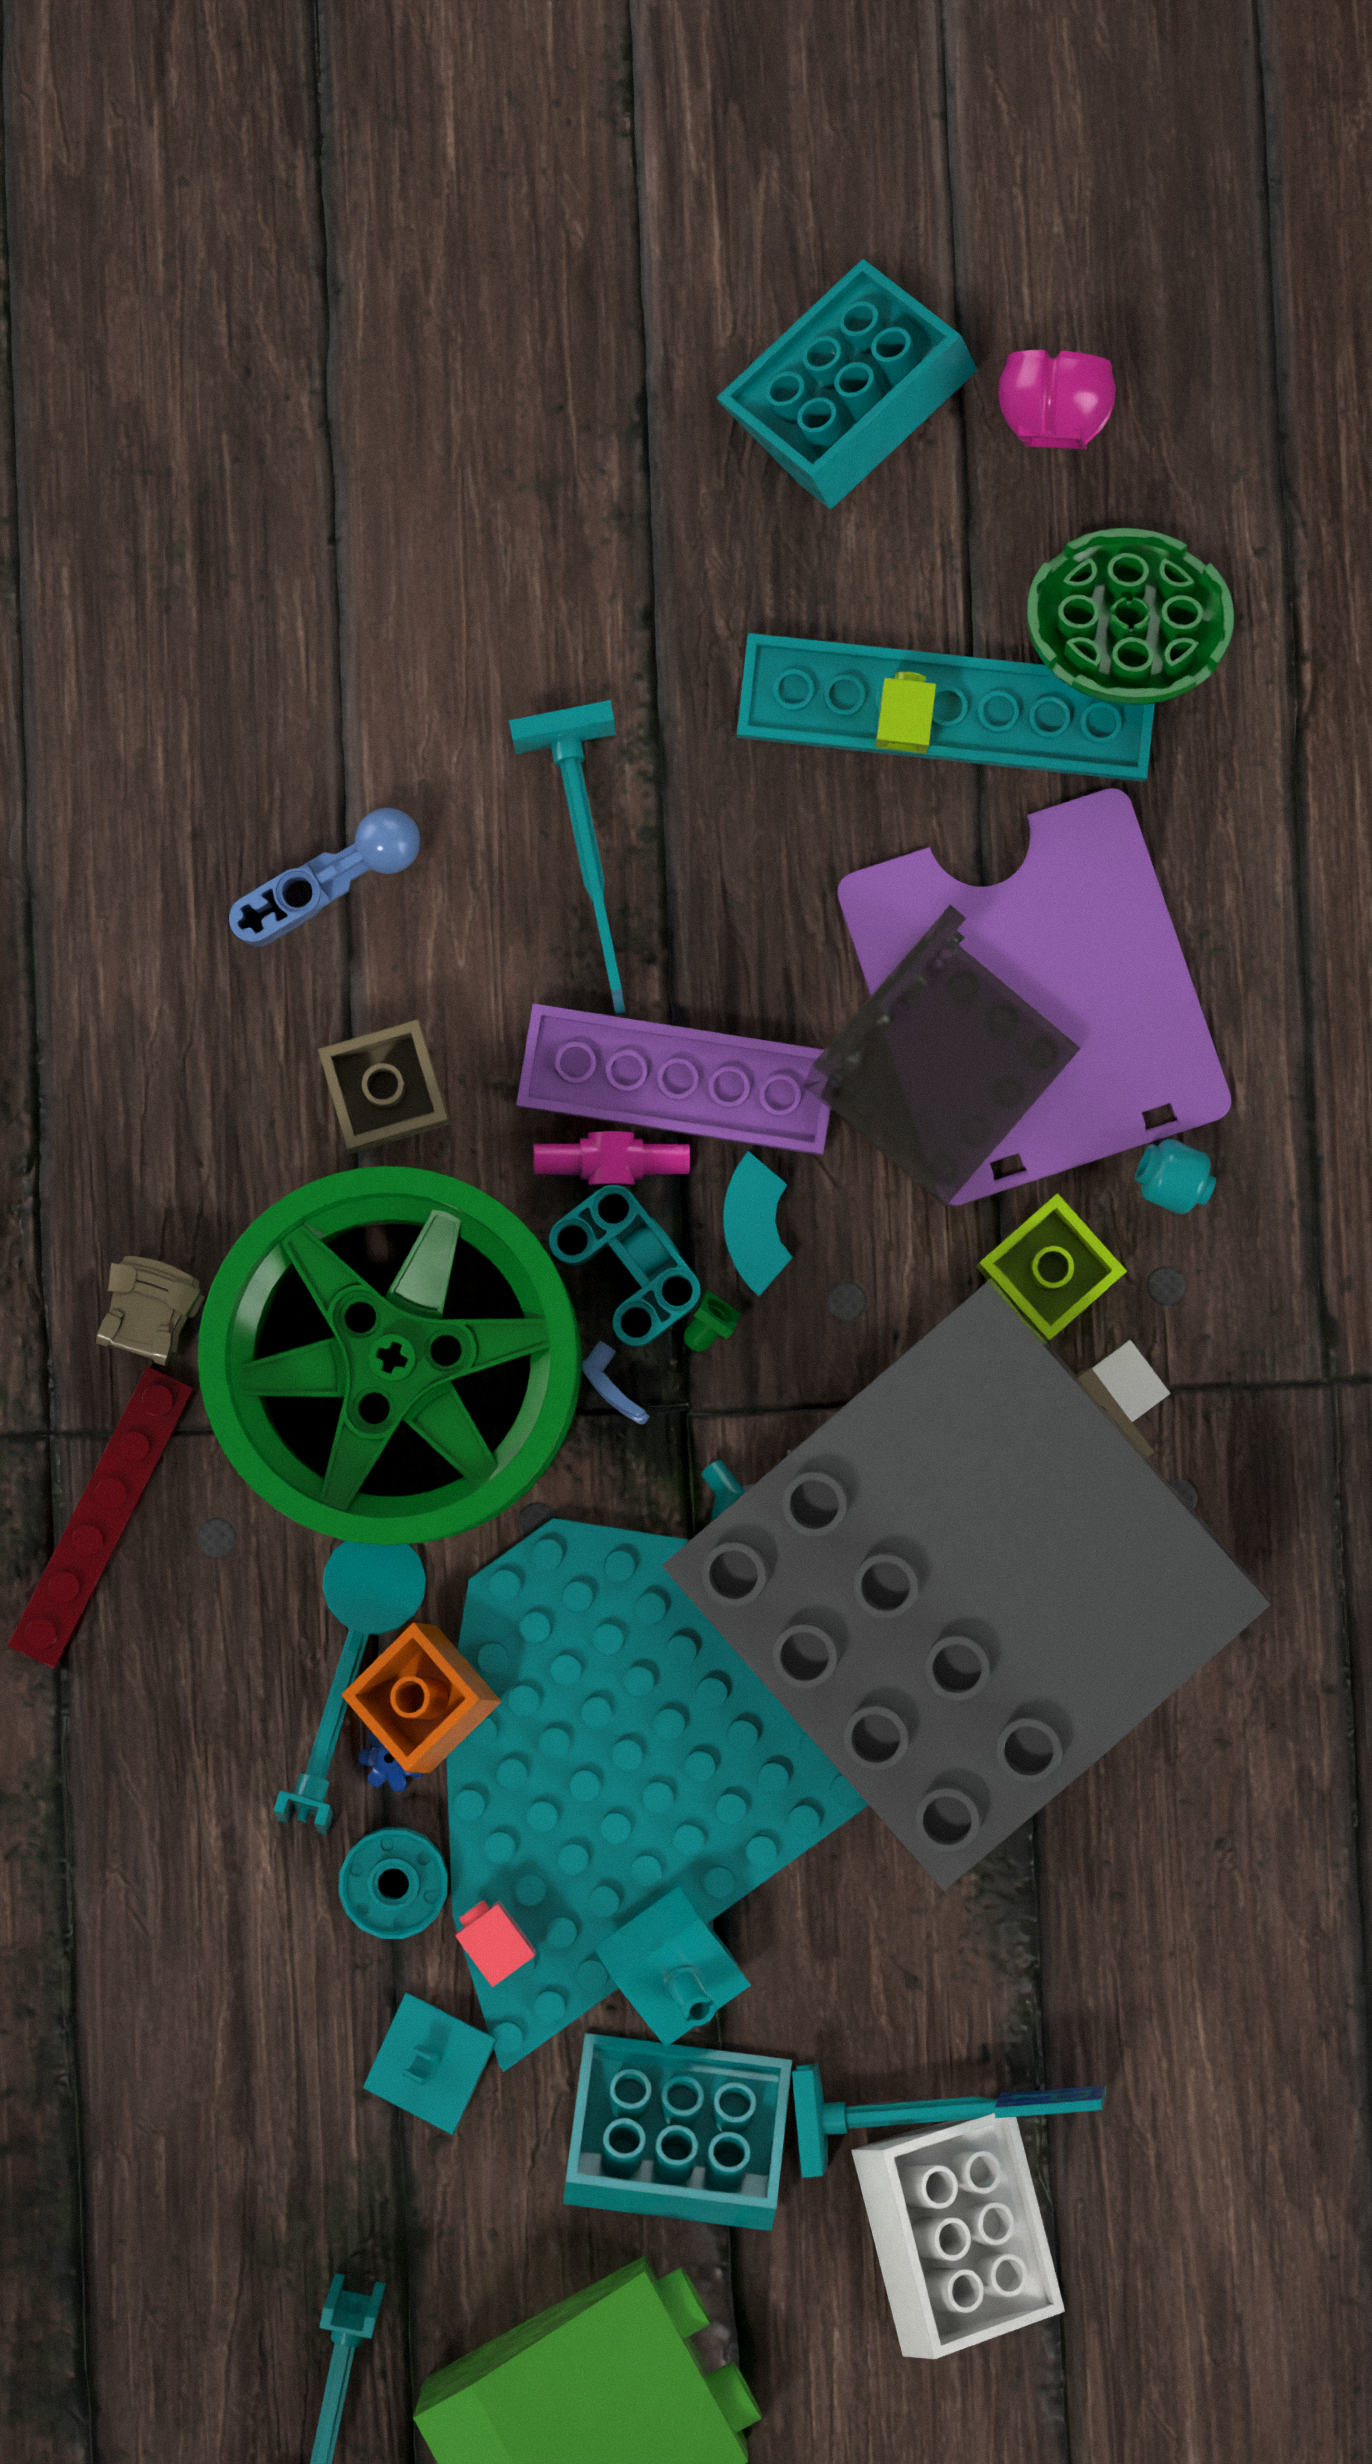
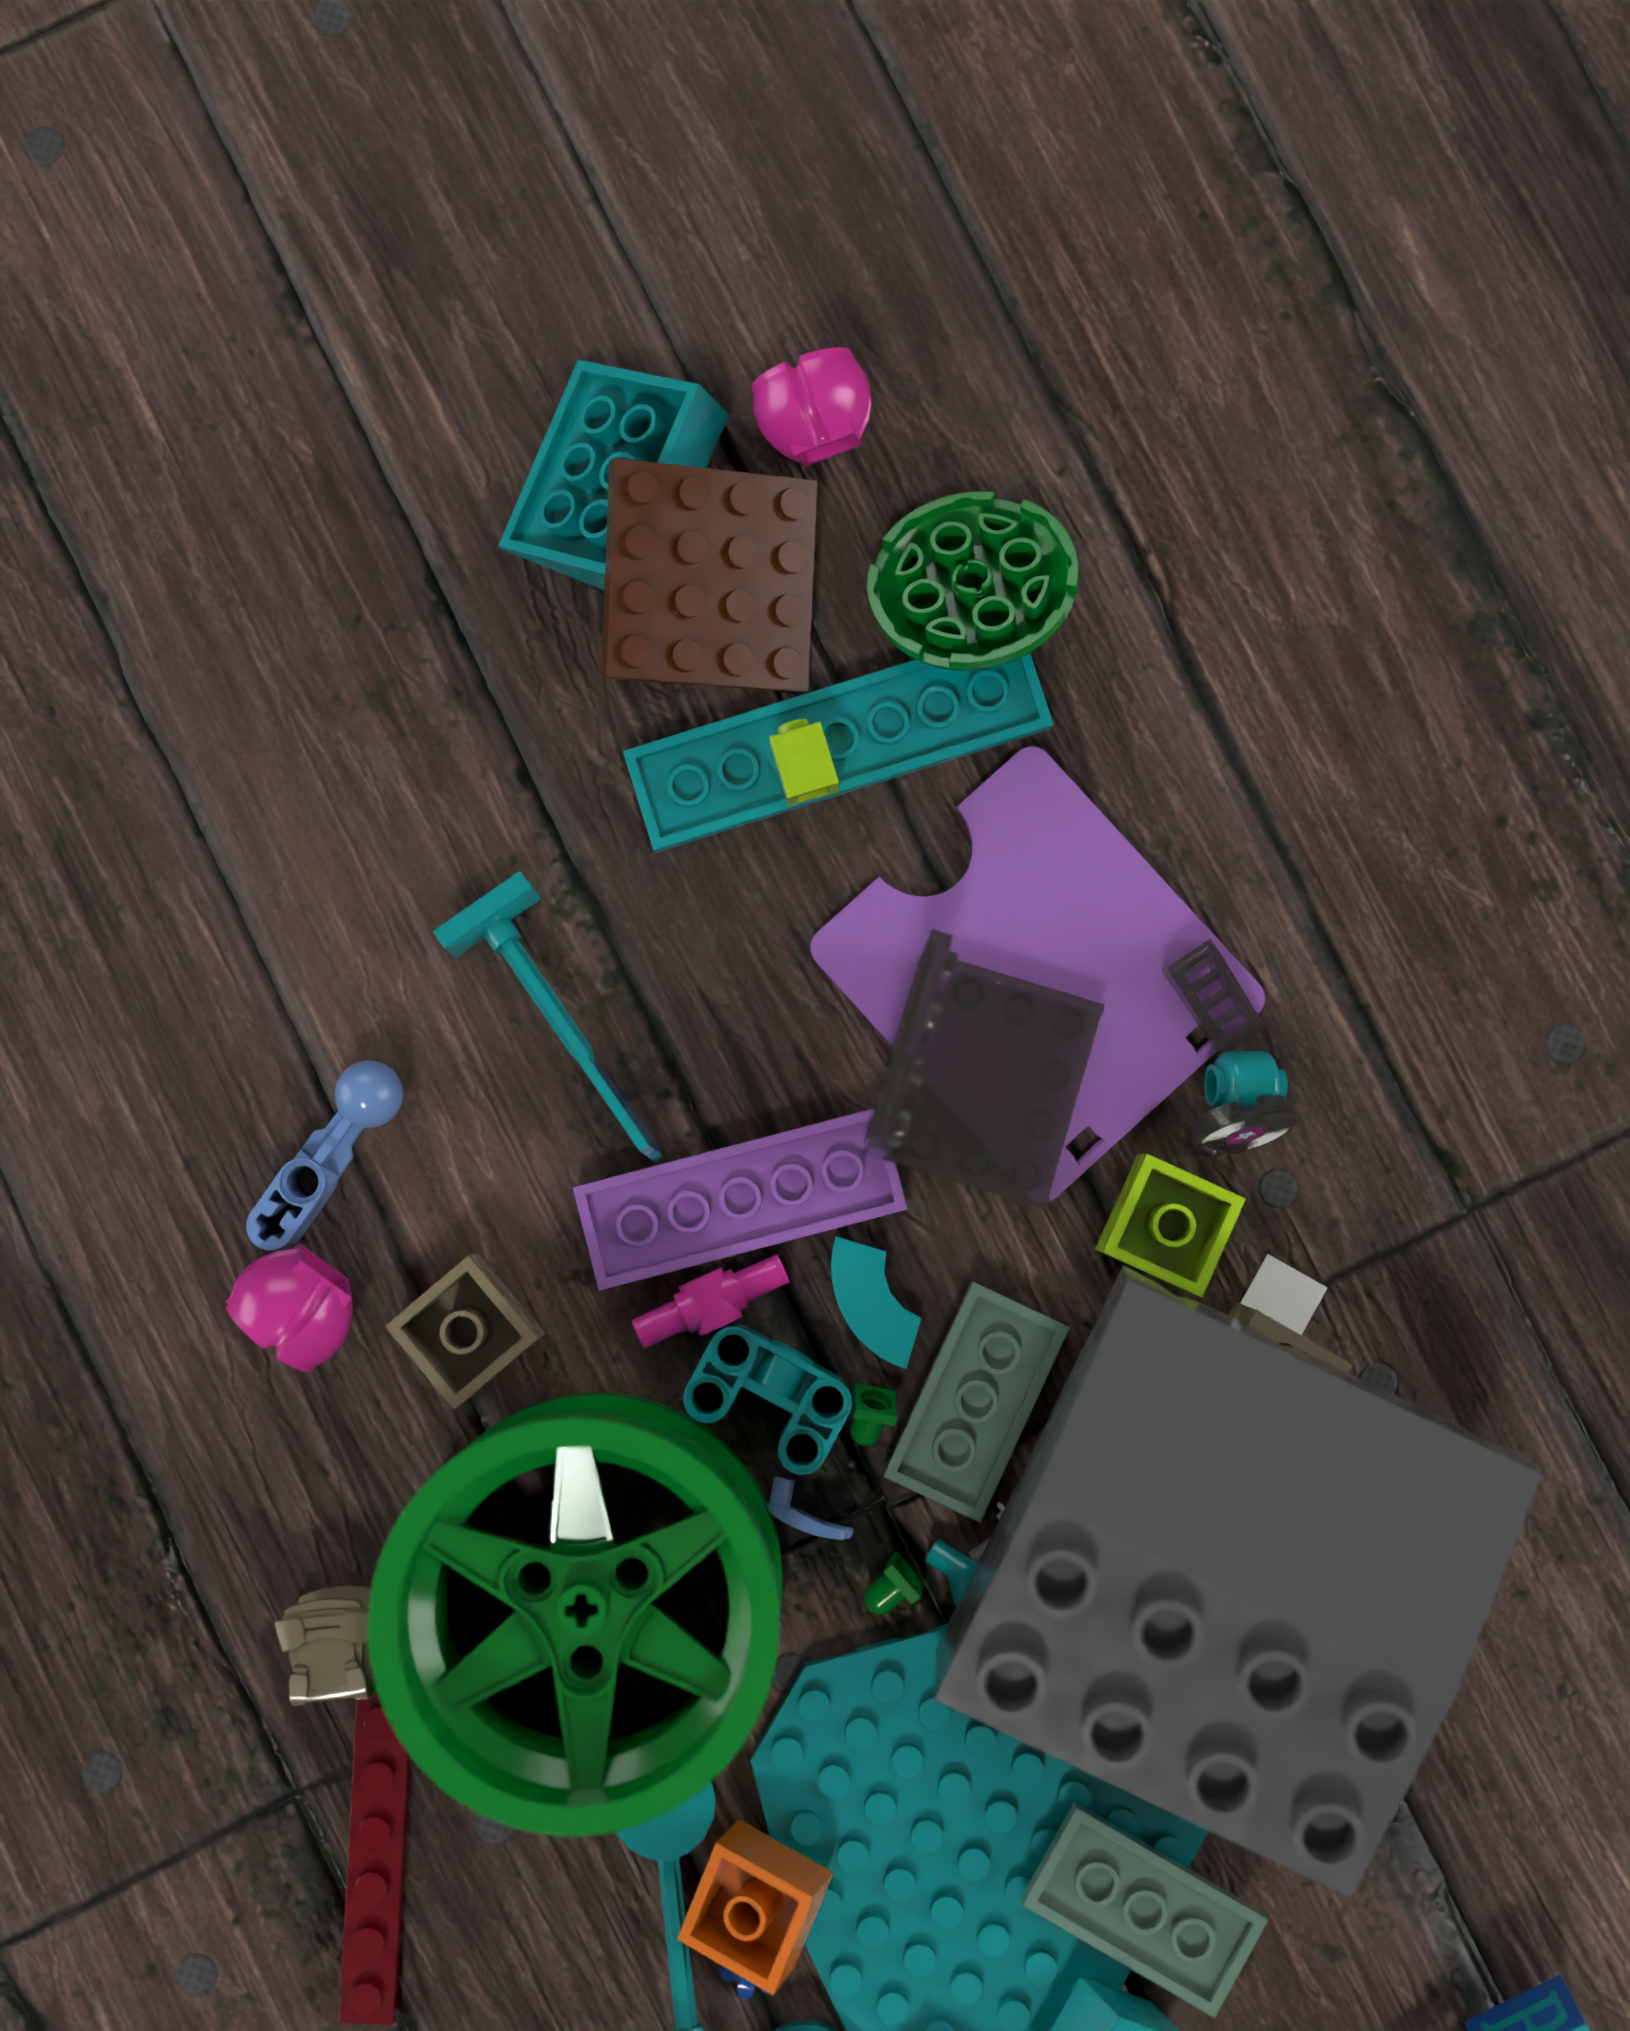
camera: 25 degrees left, 0 degrees up
(246, 995) = (293, 1304): none -> dark pink piece
(661, 1483) = (893, 1586): none -> green piece
(760, 1853) = (1144, 1909): none -> sand green plate
(809, 1351) = (975, 1401): none -> sand green plate
(894, 511) = (708, 577): none -> reddish brown plate
(1154, 1212) = (1239, 1129): none -> clear smoke tile
(1156, 1049) = (1231, 988): none -> clear smoke slope

